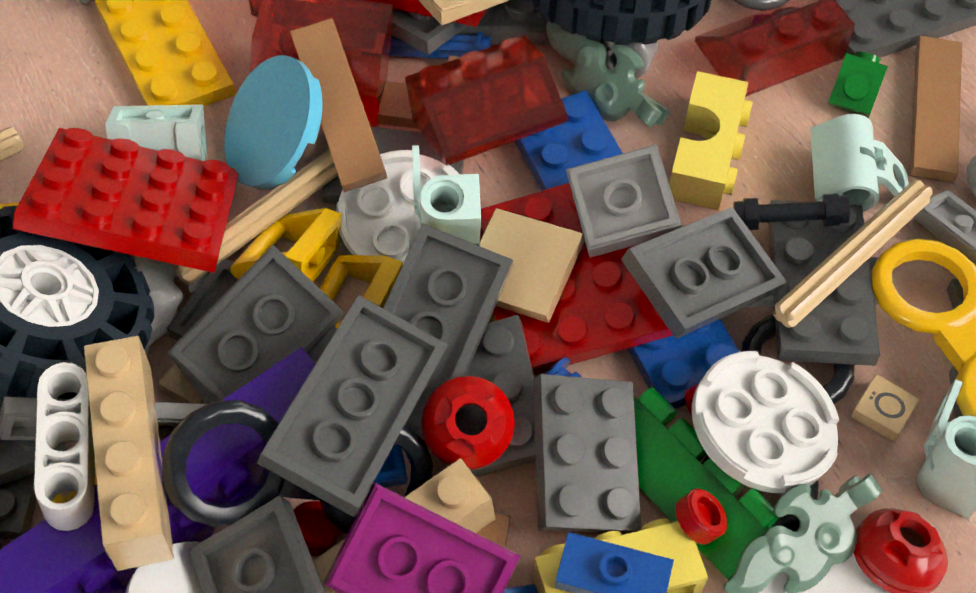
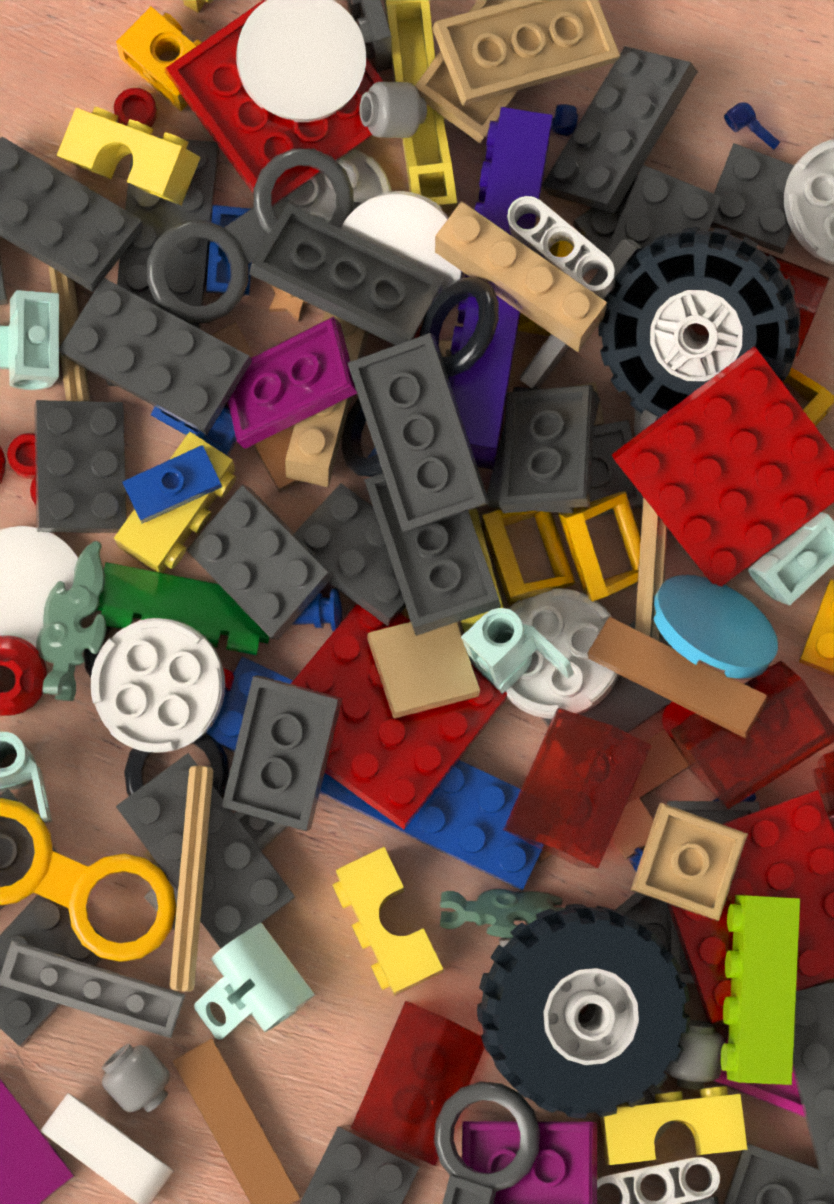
camera: 140 degrees right, 20 degrees up
(444, 437) = (358, 519): red piece -> none
(623, 200) = (387, 765): light grey tile -> none
(701, 516) = (149, 575): red tile -> none
(832, 210) = (236, 903): black bar -> none
(858, 83) = (315, 1095): green bracket -> none
(885, 407) = (89, 790): tan tile -> none

